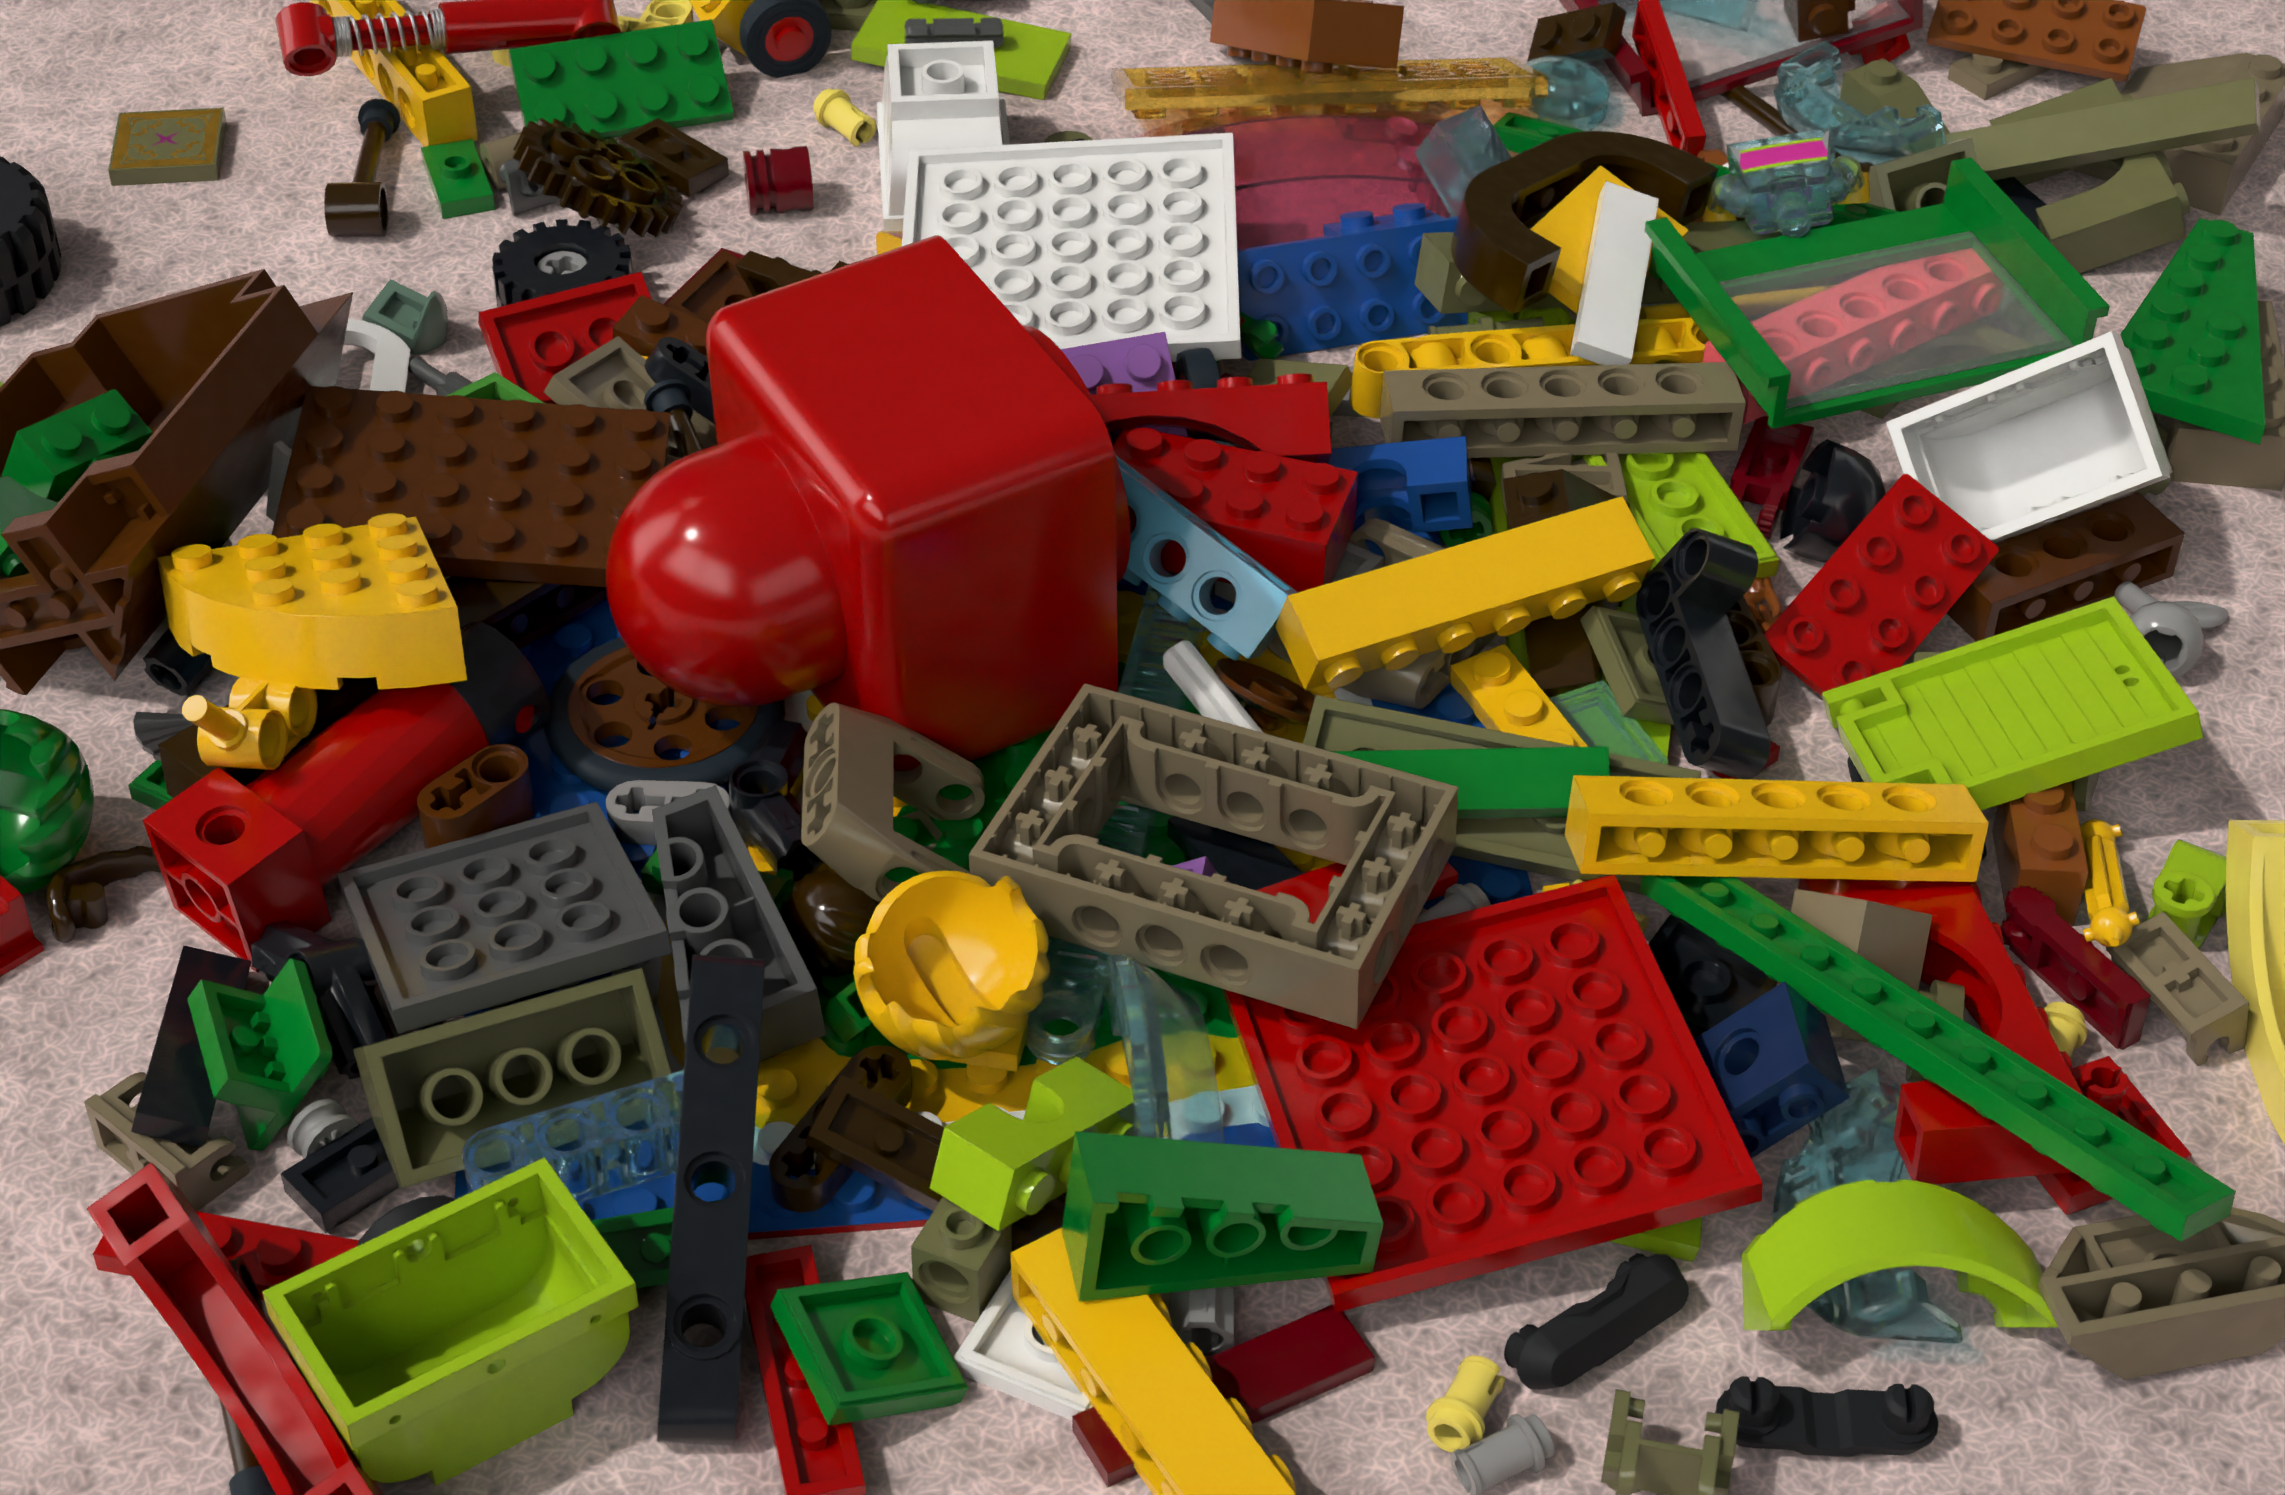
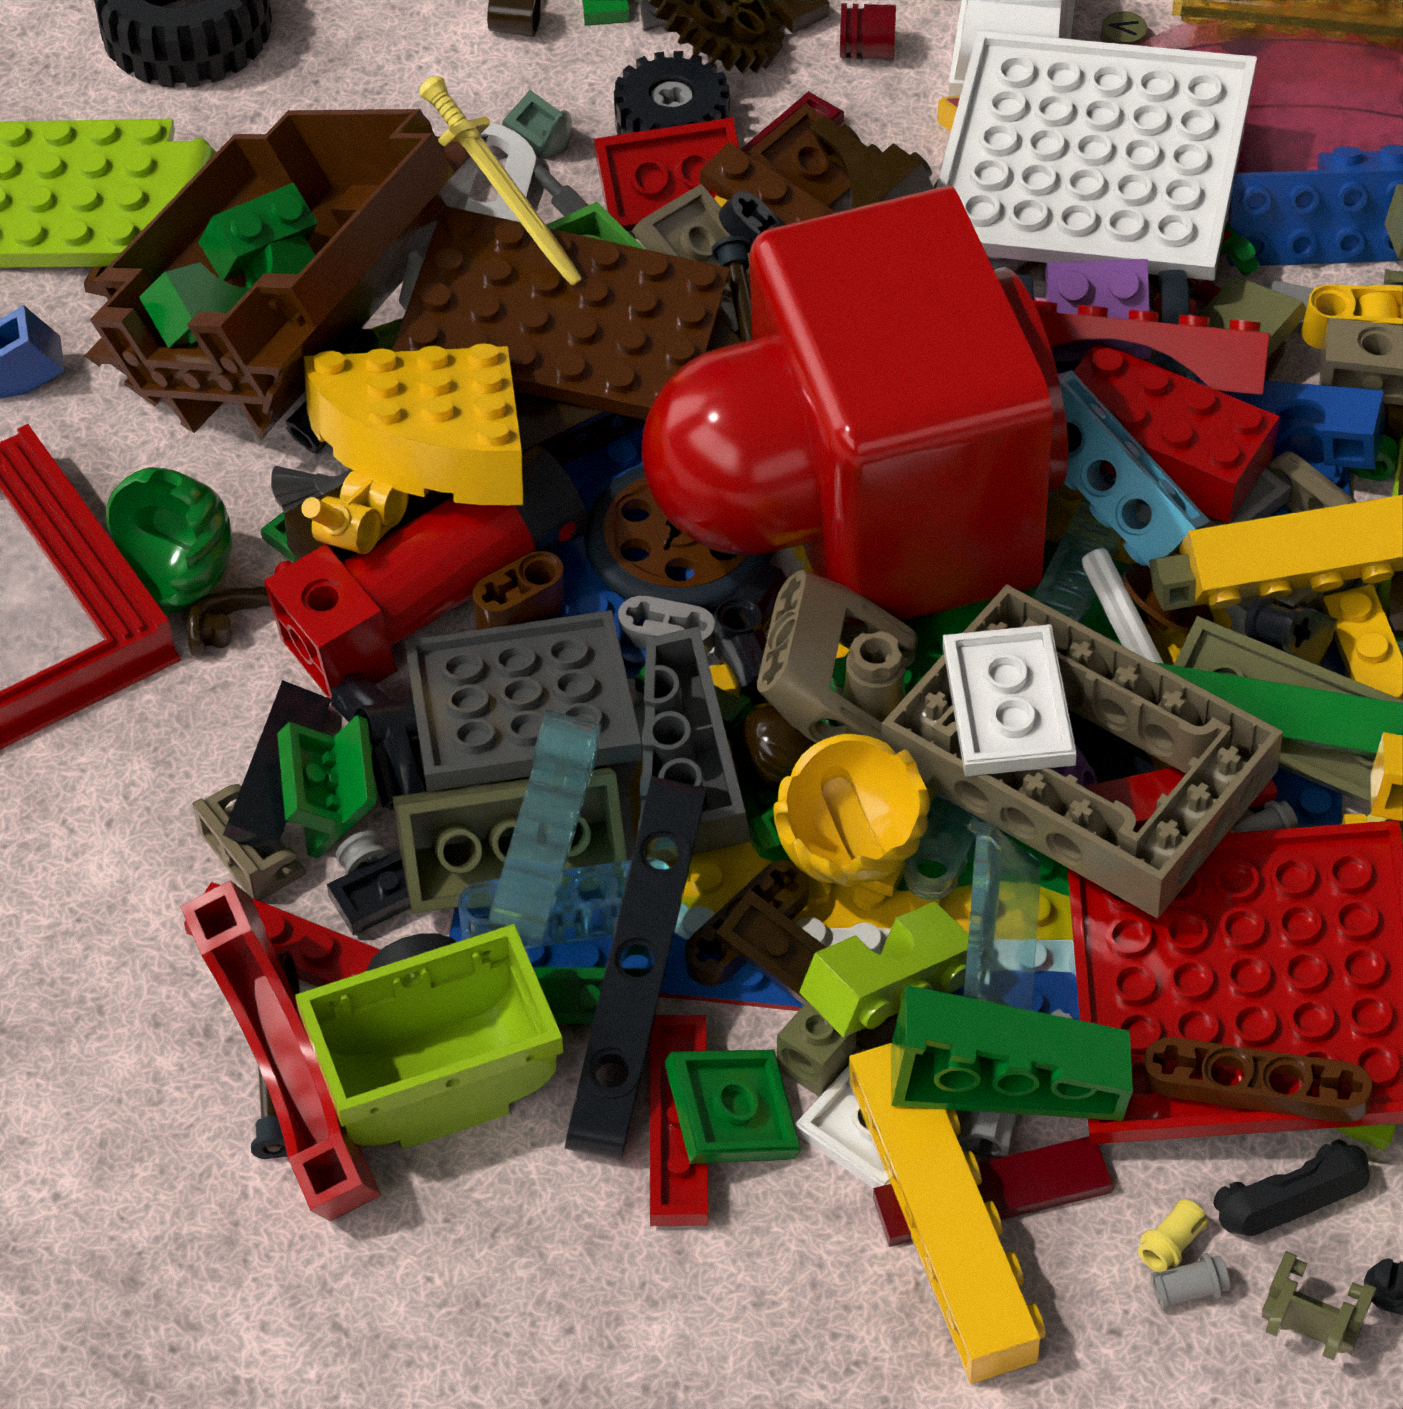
camera: 15 degrees right, 10 degrees up
(330, 289) = (468, 134): none -> light yellow sword
(564, 1031) = (545, 825): none -> clear light blue beam
(943, 811) = (875, 674): none -> dark tan plant
(1120, 804) = (1008, 700): none -> white tile
(1277, 662) = (1173, 581): none -> olive piece
(1427, 691) = (1291, 629): none -> black piece
(1529, 1202) = (1255, 1088): none -> reddish brown beam

